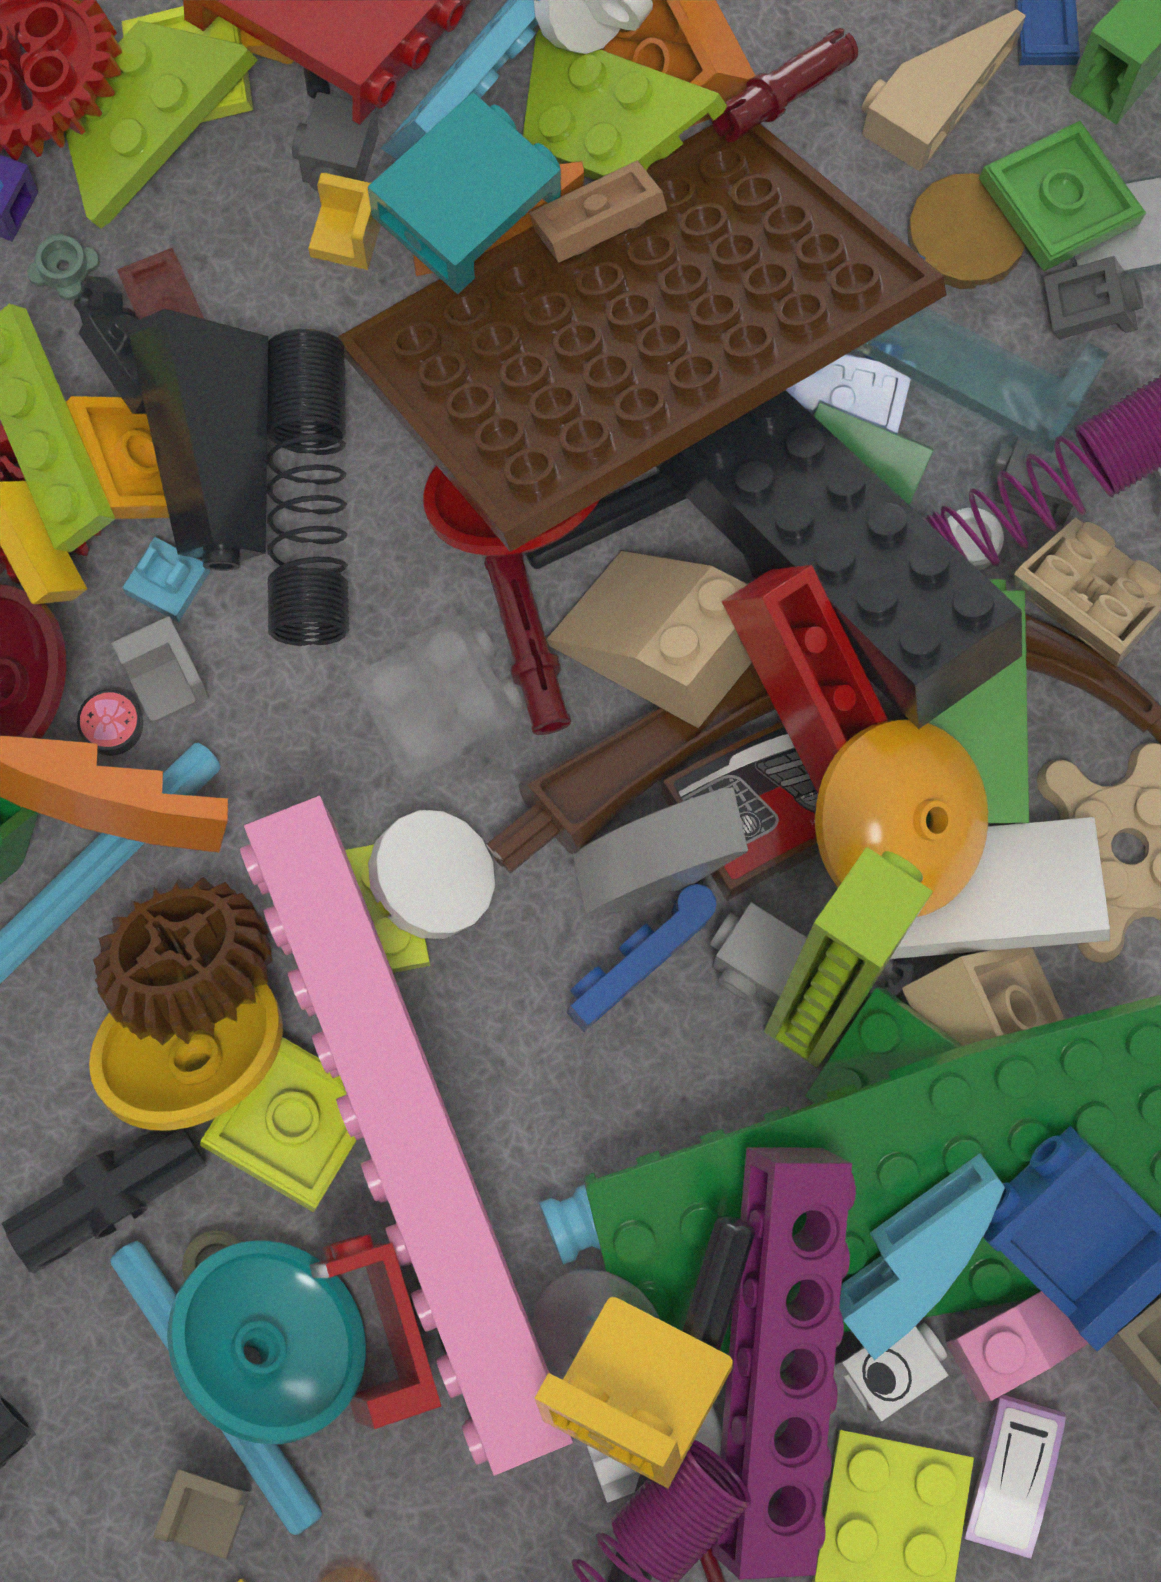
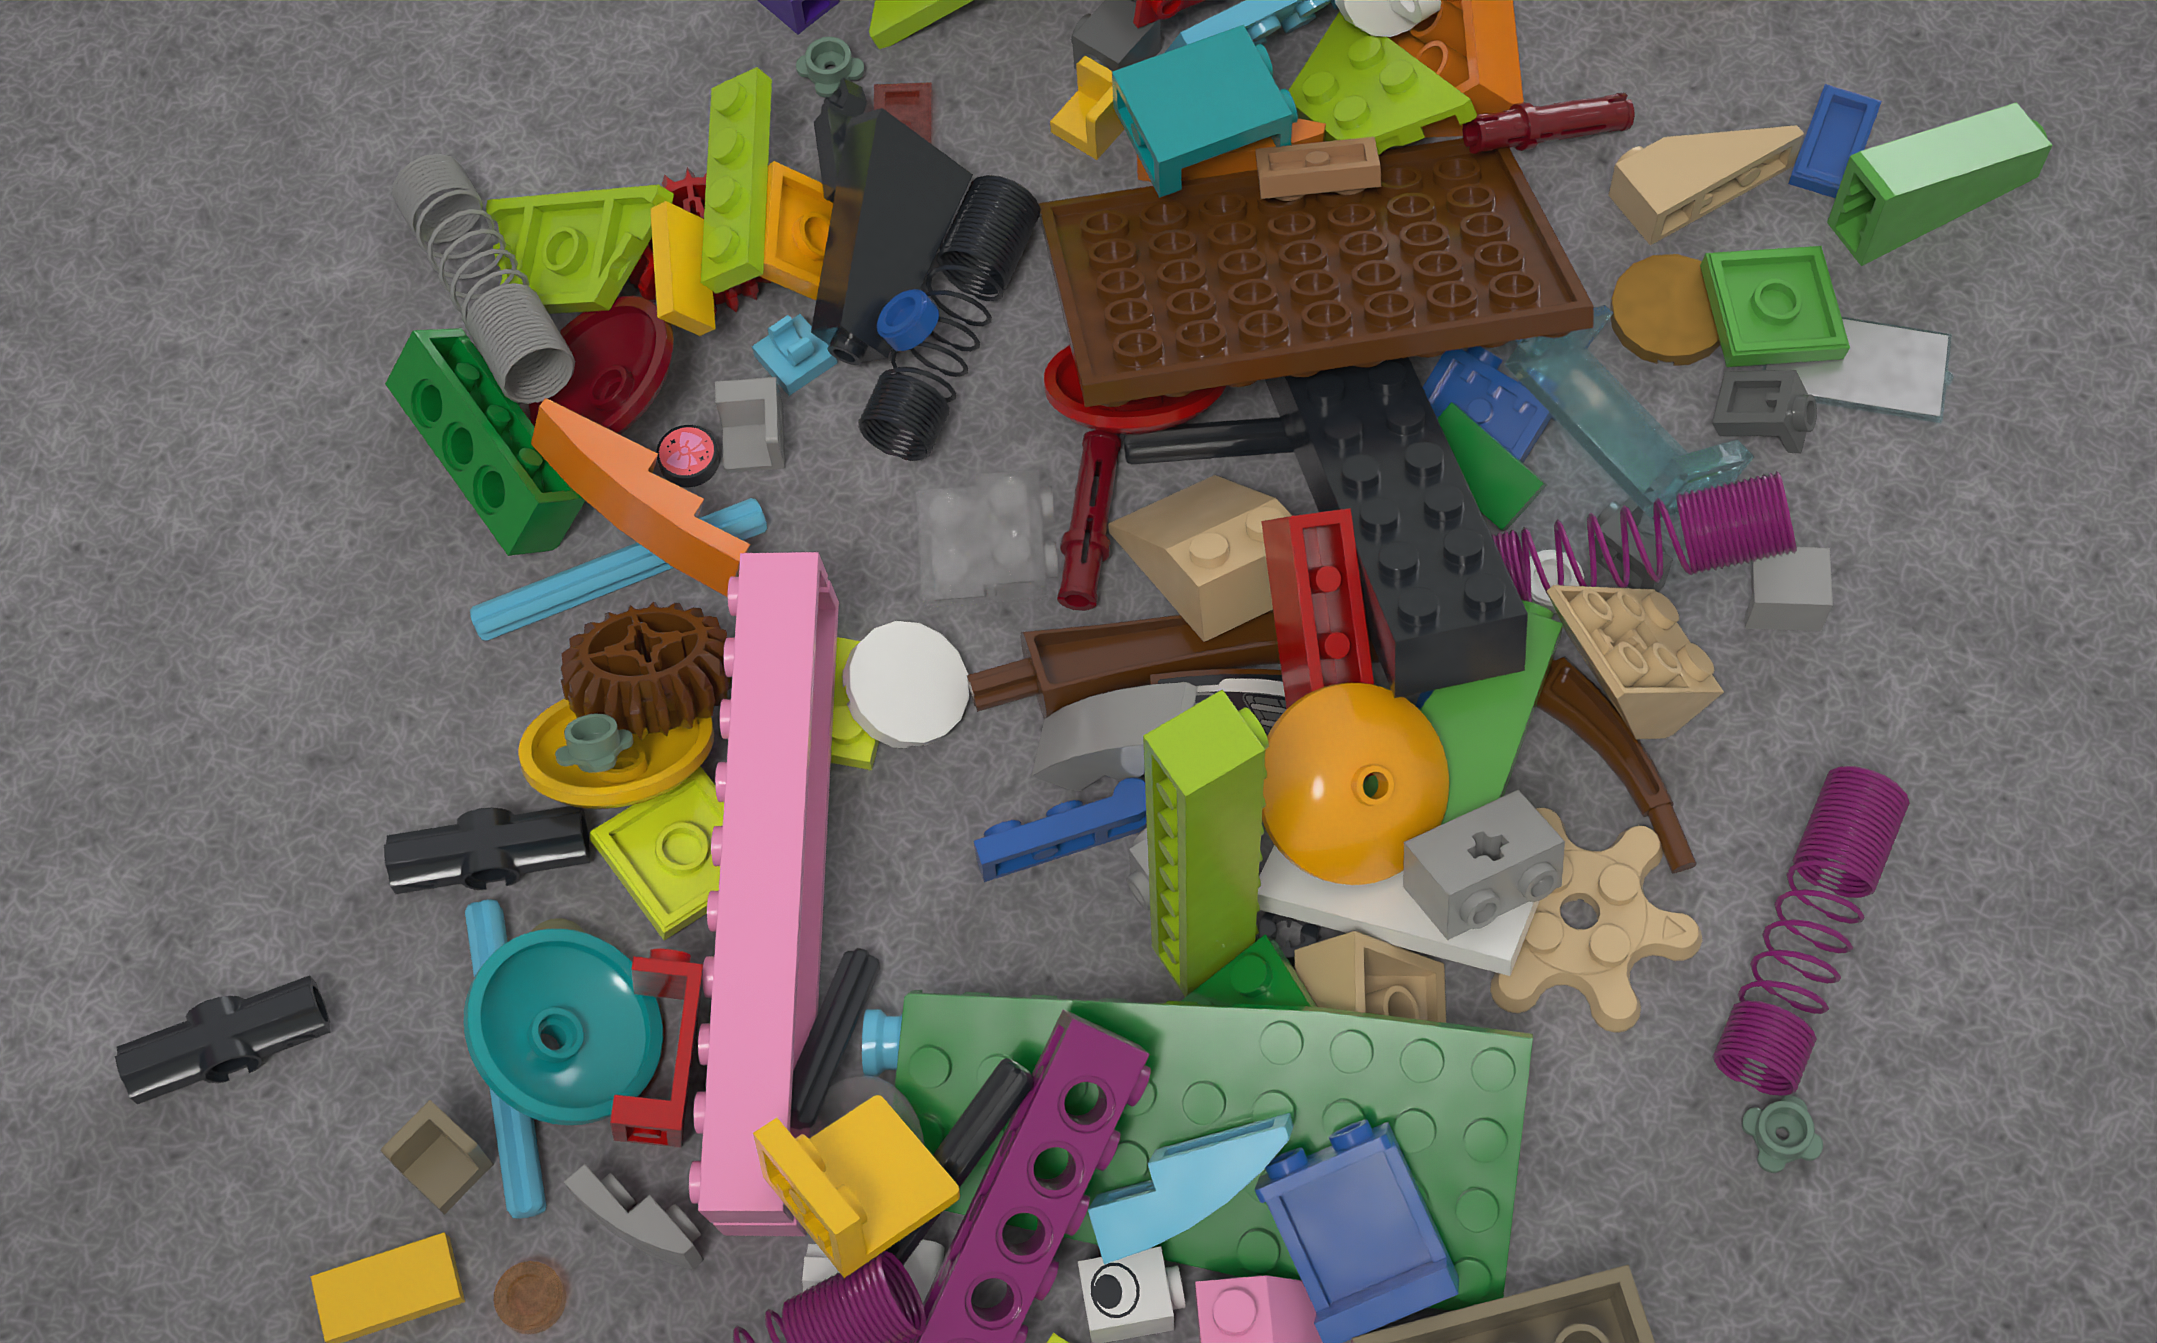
camera: 30 degrees right, 10 degrees down
(174, 1061) = (593, 743): none -> sand green plate
(276, 512) = (907, 320): none -> blue tile
(437, 1493) = (647, 1227): none -> light grey slope
(516, 1231) = (831, 1035): none -> black axle
(1049, 848) = (1483, 864): none -> light grey brick

